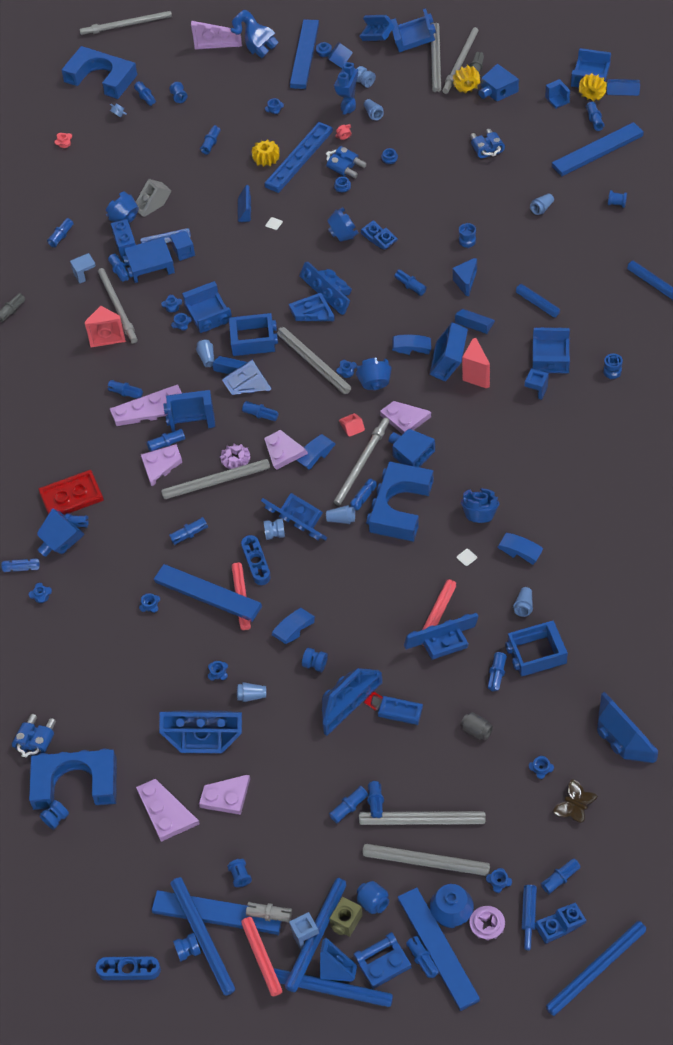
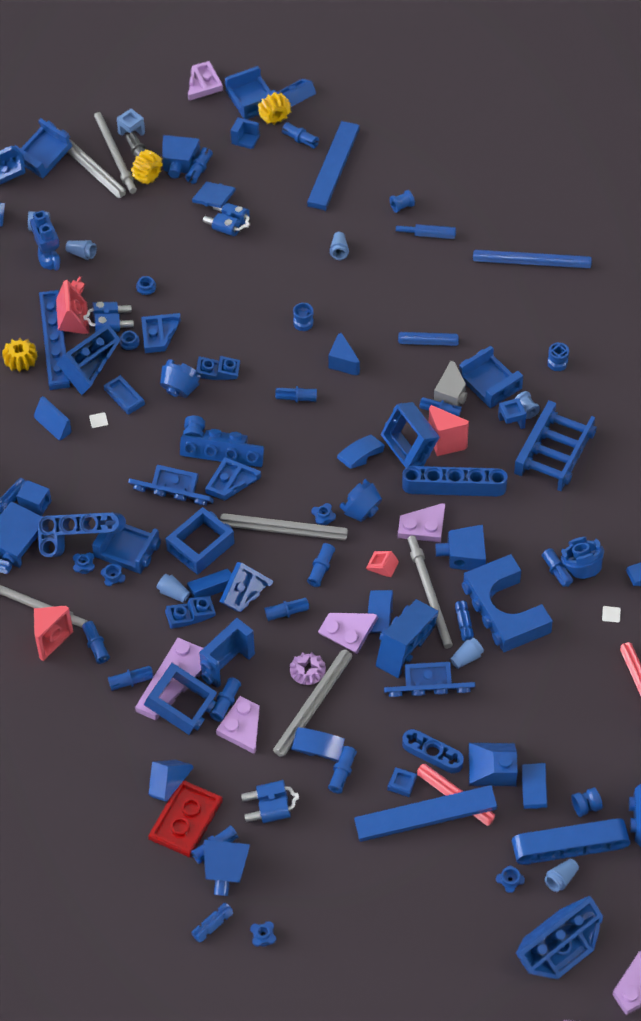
camera: 45 degrees left, 0 degrees up
(83, 461) = (167, 777): none -> blue slope
(127, 520) = (272, 802): none -> blue piece
(128, 355) = (95, 642): none -> blue axle
(133, 403) = (170, 713): none -> blue window
(149, 598) = (376, 858): blue plate -> none
(169, 269) = (81, 521): none -> blue beam
(189, 504) = (318, 743): none -> blue slope
(202, 375) = (193, 612): none -> blue slope
(217, 565) = (402, 782): none -> blue tile
(274, 288) = (173, 482): none -> blue bracket
(274, 529) = (421, 709): medium blue wheel -> none
(278, 676) = (570, 841): none -> blue beam
(285, 595) = (492, 764): none -> blue slope
(302, 178) = (88, 358): none -> blue wedge
(304, 217) = (124, 395): none -> blue tile
(310, 398) = (321, 564): none -> blue pin
(312, 475) = (404, 635): none -> blue wedge
(322, 141) = (70, 310): none -> coral slope
(323, 262) = (194, 426): none -> blue wheel
(366, 189) = (159, 331): none -> blue wing
(452, 402) = (454, 481): none -> blue beam
(457, 508) = (557, 567): none -> blue axle
(474, 321) = (391, 393): blue slope -> none
(486, 43) = (129, 122): none -> medium blue panel
(494, 122) = (213, 195): none -> blue piece
(495, 350) = (425, 403): none -> blue axle
(505, 98) = (198, 165): none -> blue pin
(515, 340) = (451, 386): none -> light grey slope
(539, 408) = (542, 431): none -> blue fence
(556, 382) = (529, 406): none -> medium blue bush
(567, 45) = (203, 81): none -> lavender wing
(617, 230) = (429, 231): none -> blue axle

